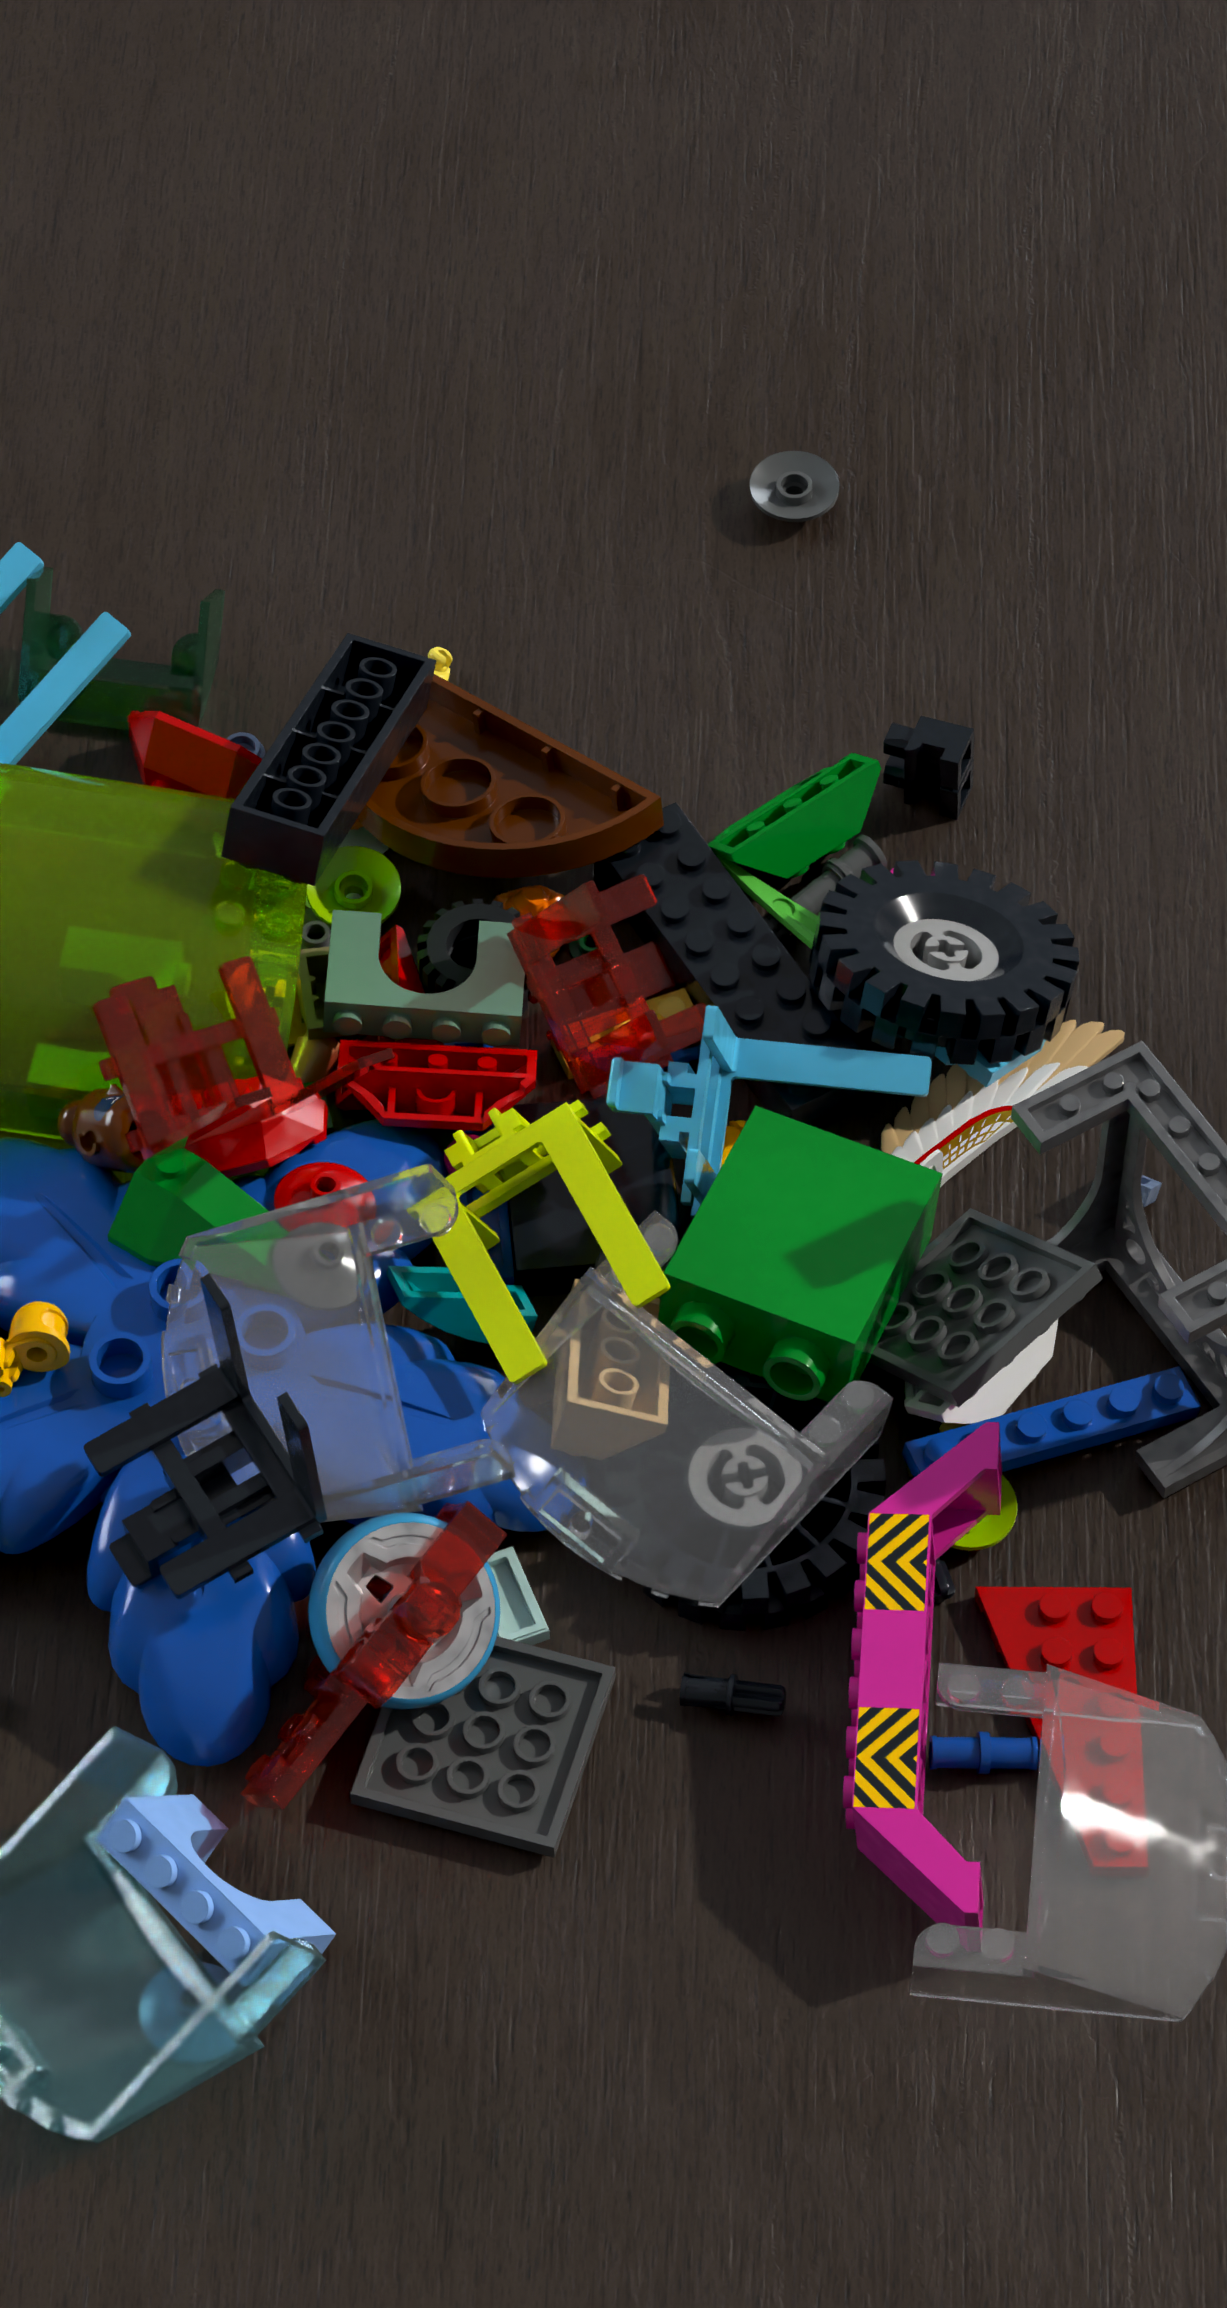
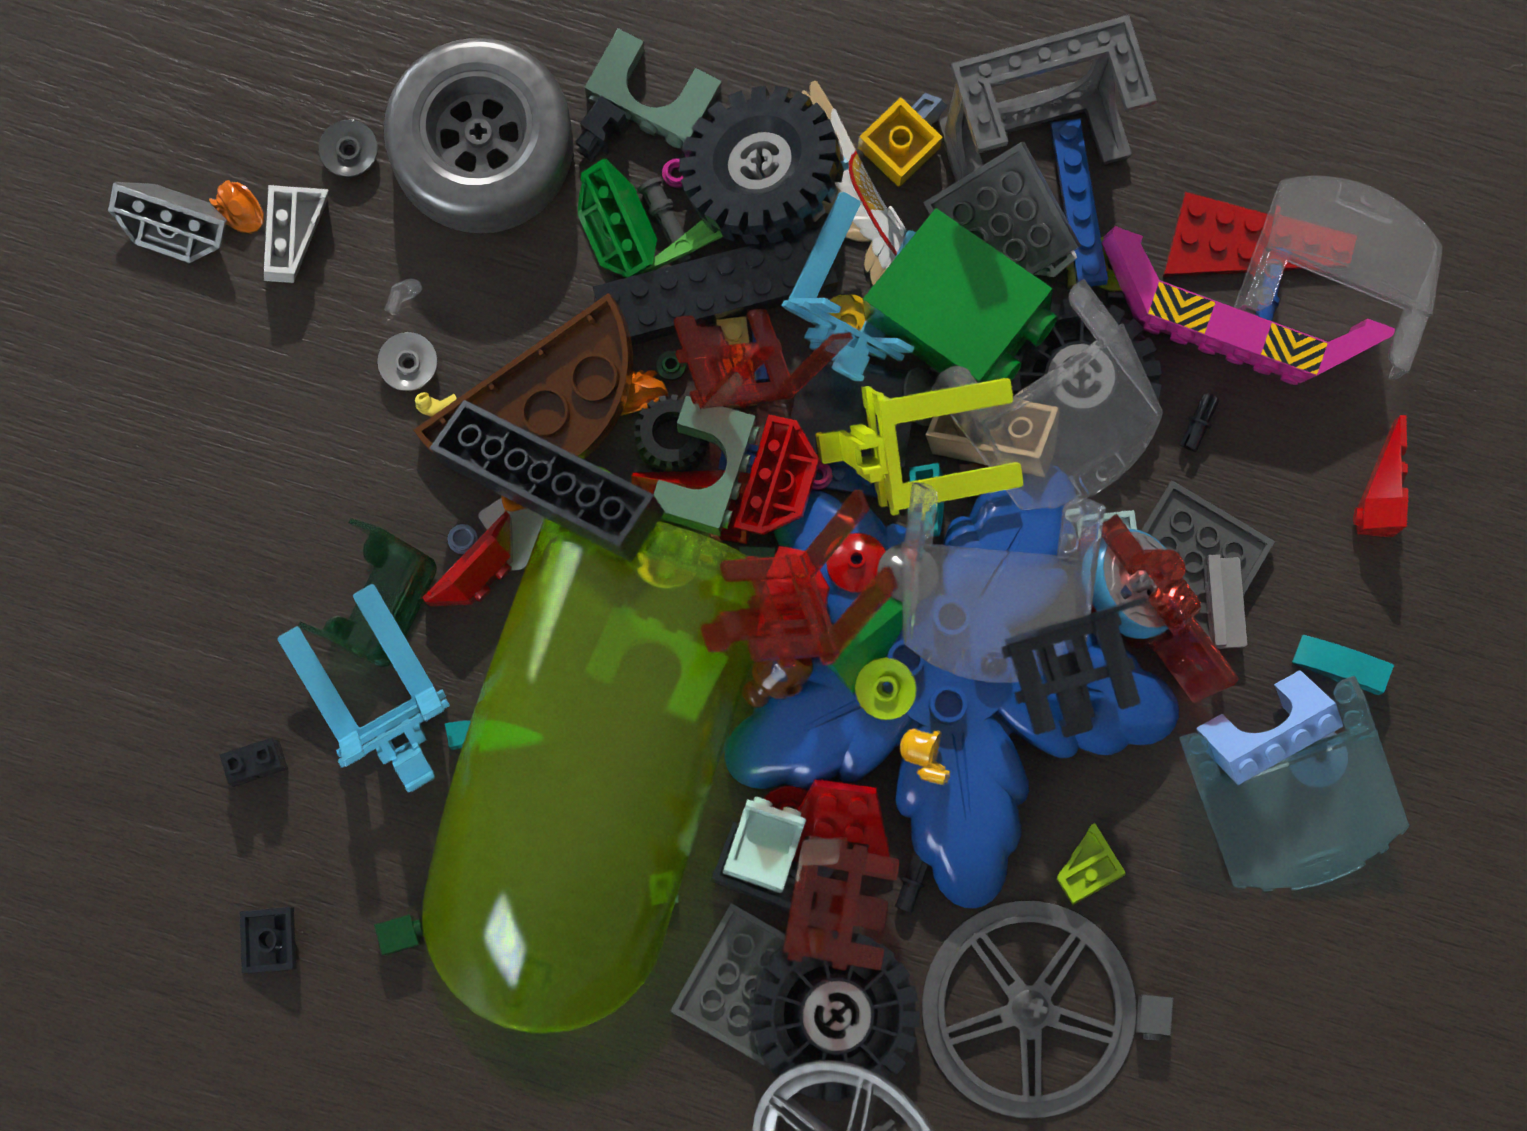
camera: 80 degrees left, 25 degrees up
(122, 1266) = (875, 698): none -> lime dish
(364, 2008) = (1342, 663): none -> teal slope
(420, 1780) = (1225, 601): none -> light grey panel
(492, 625) = (402, 348): none -> light grey dish
(597, 600) = (401, 292): none -> clear arm
(613, 304) = (167, 220): none -> dark grey wedge
(642, 443) = (289, 229): none -> white wedge
(660, 389) = (238, 207): none -> orange hat
(692, 2004) = (1384, 501): none -> red wedge
(867, 550) = (472, 74): none -> flat silver wheel
(1017, 772) = (670, 121): none -> sand green arch
(1049, 1181) = (899, 142): none -> yellow brick

